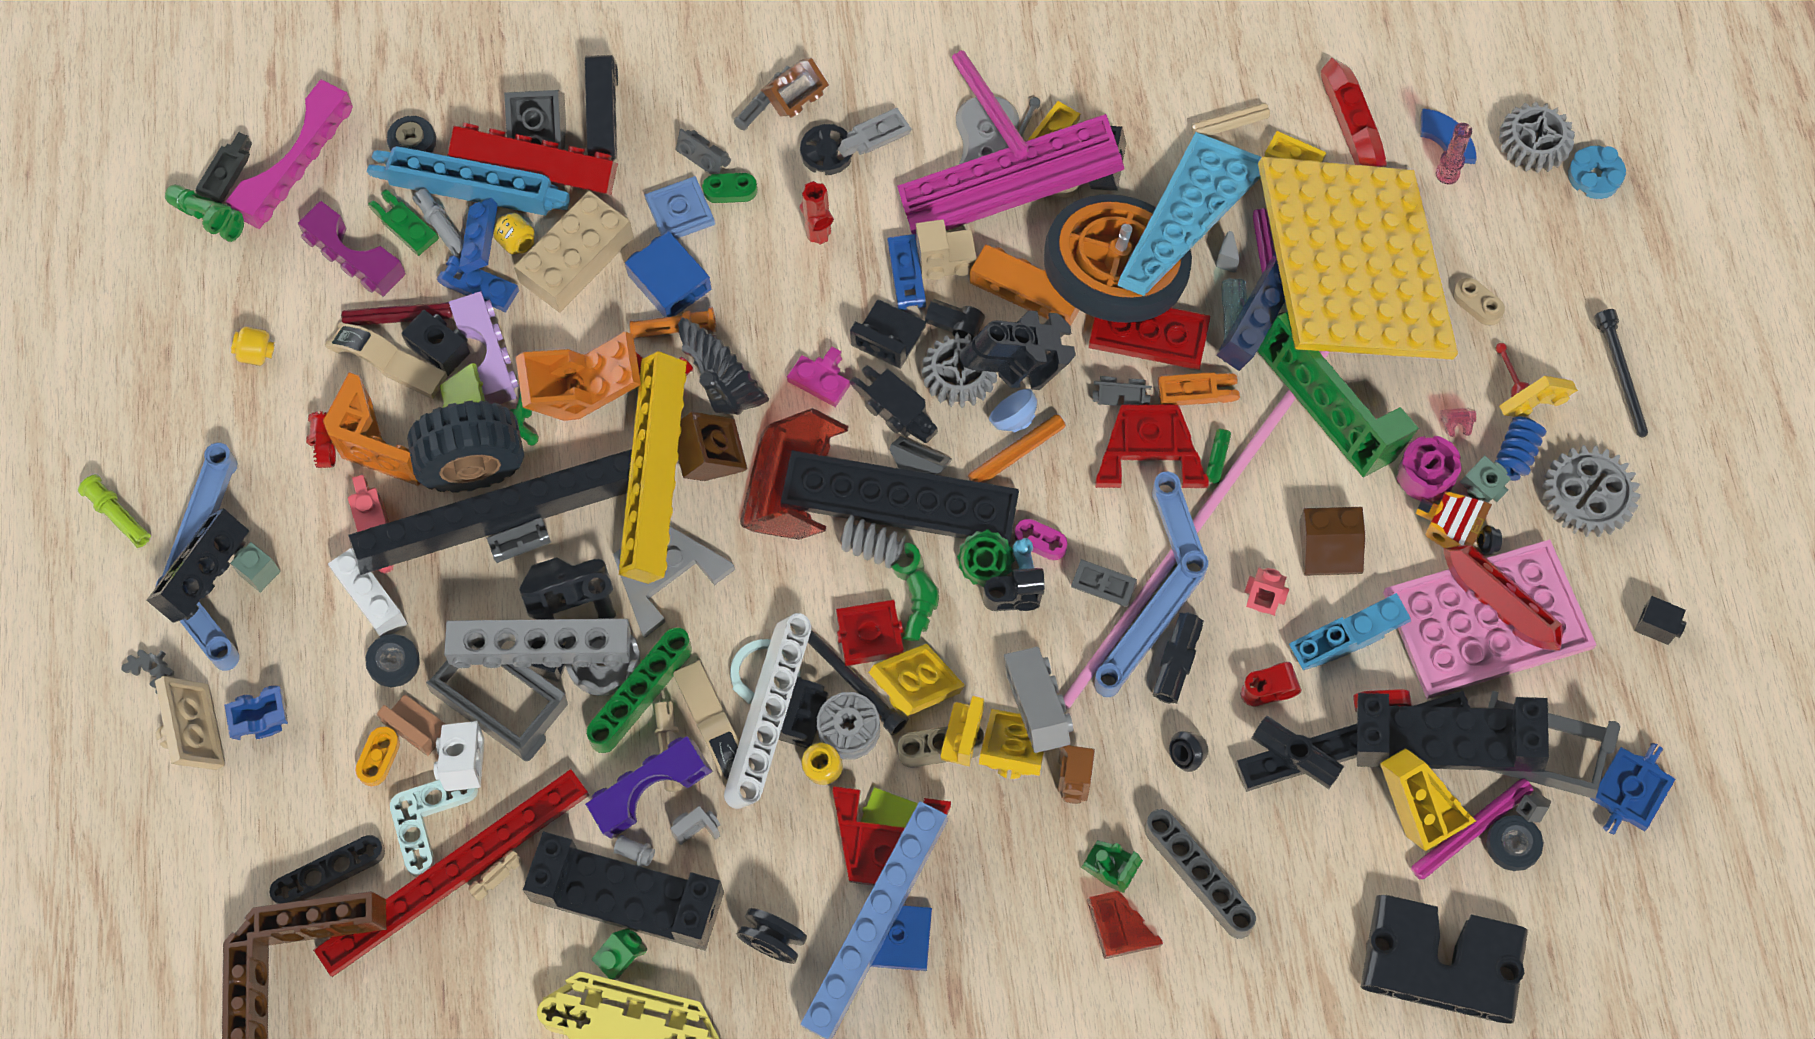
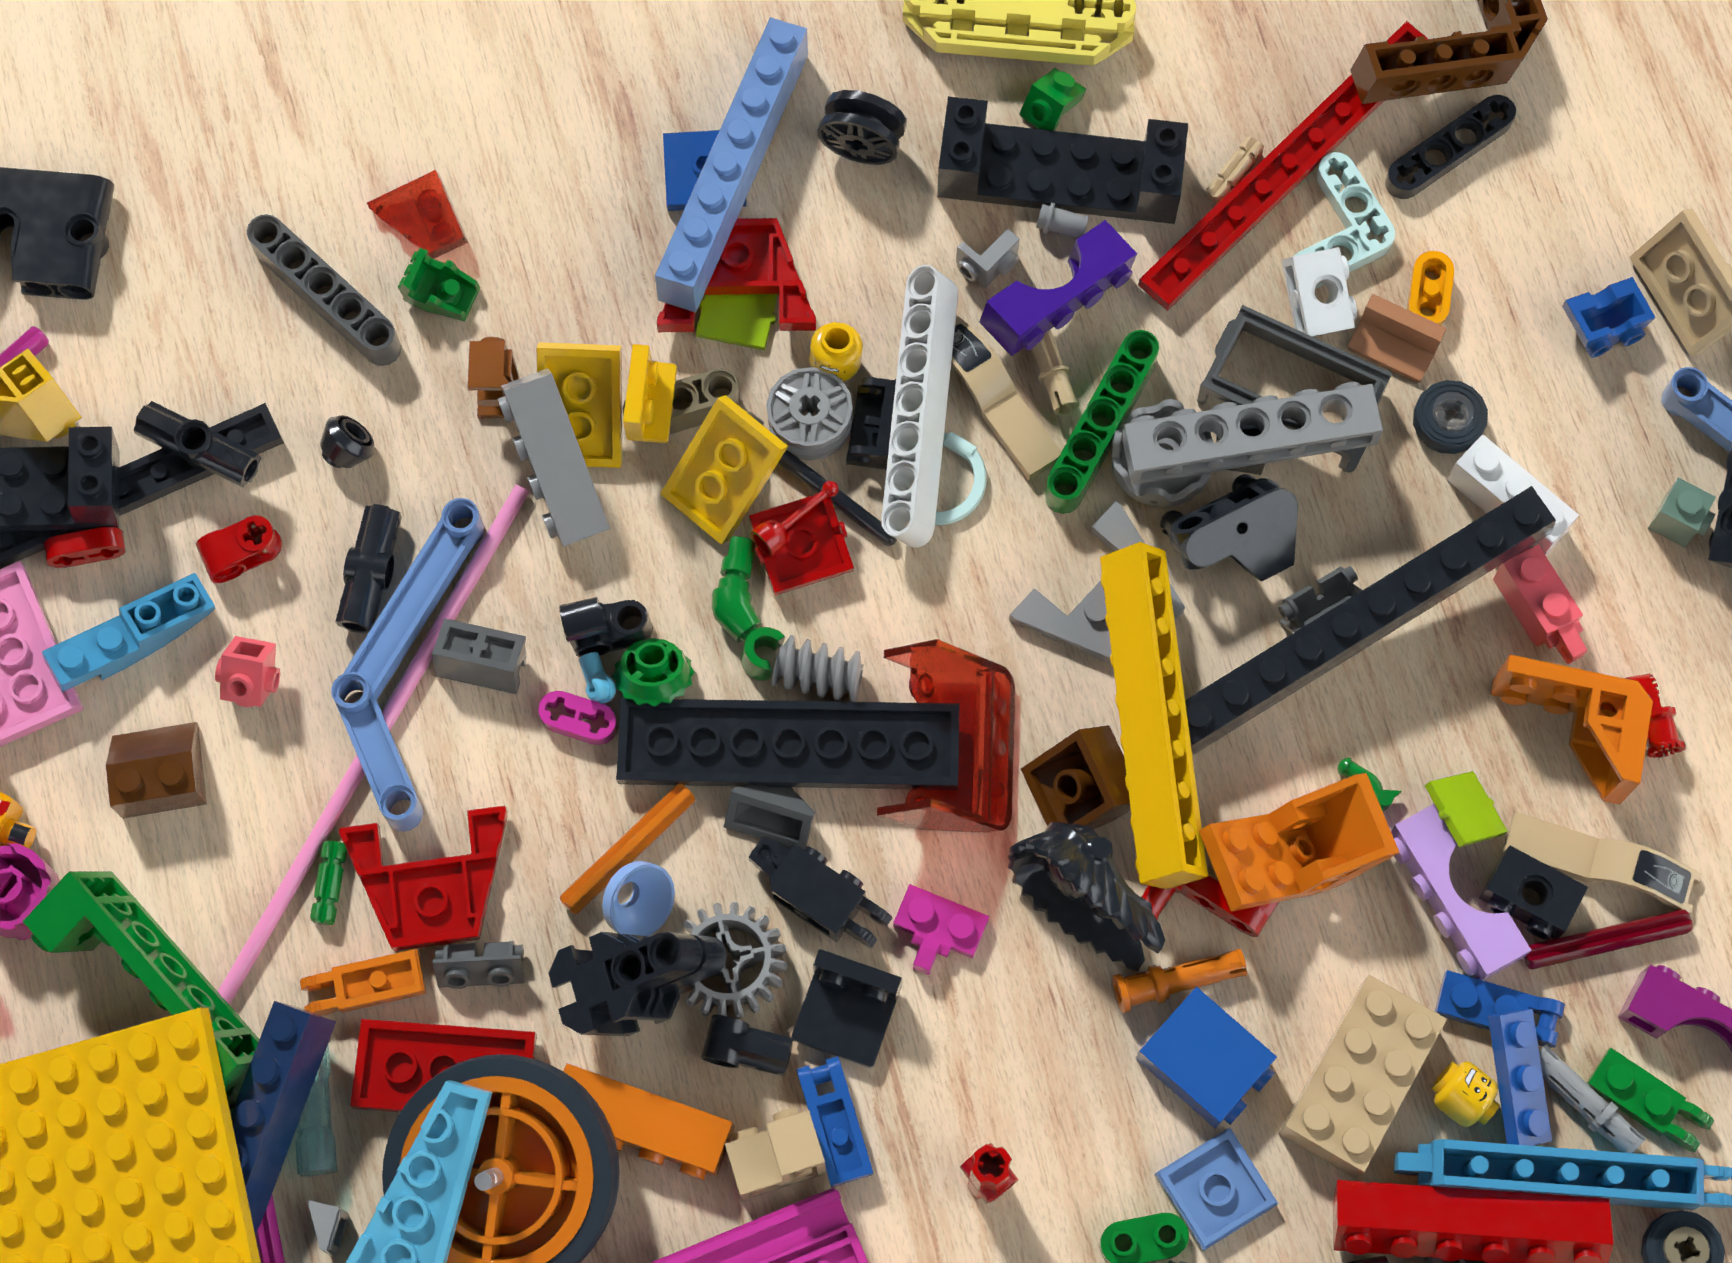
camera: 170 degrees right, 5 degrees up
(465, 446) = (1432, 697): black wheel -> none
(888, 627) = (772, 535): none -> red hinge

